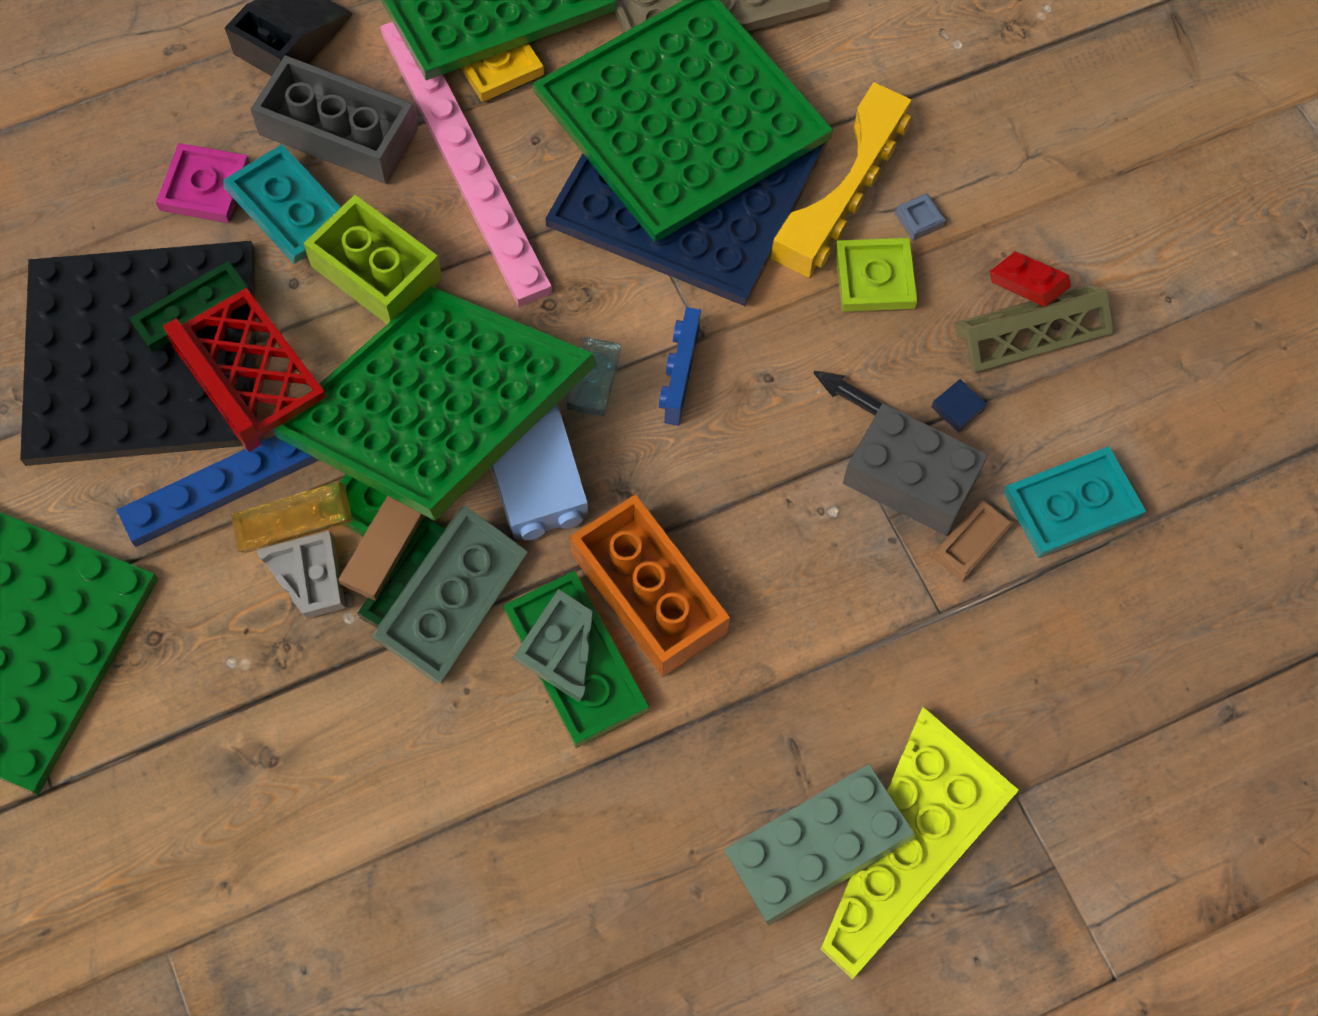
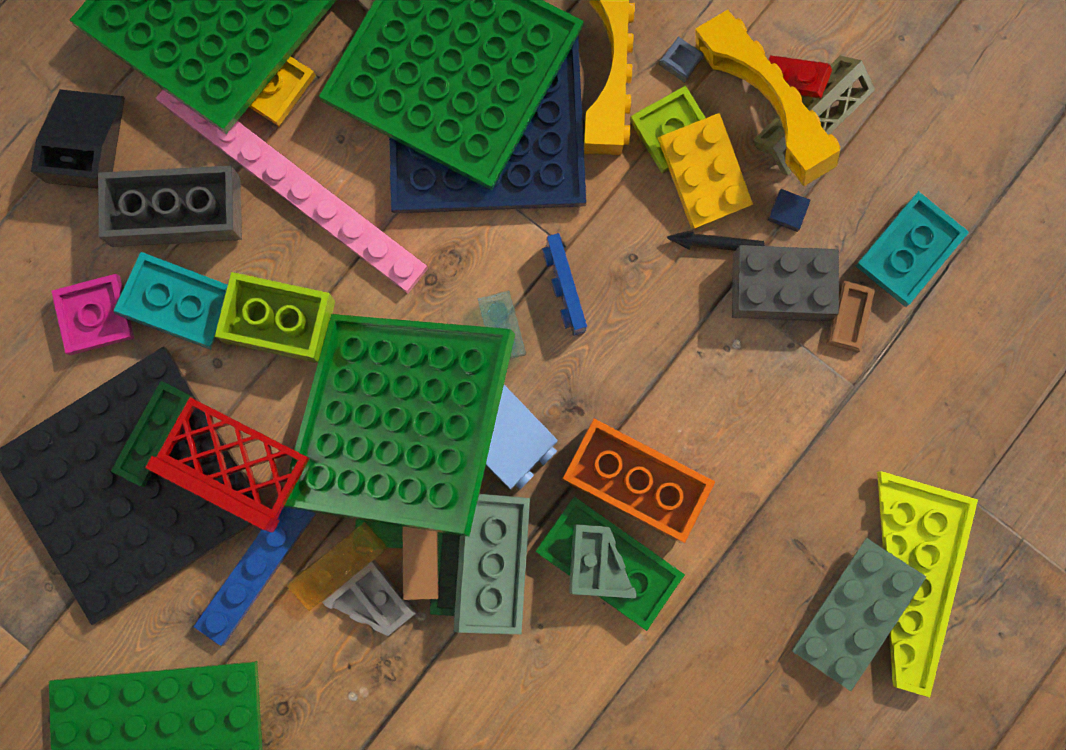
camera: 30 degrees left, 15 degrees up
(886, 324) = (705, 170): none -> yellow plate
(1001, 331) = (731, 50): none -> yellow arch

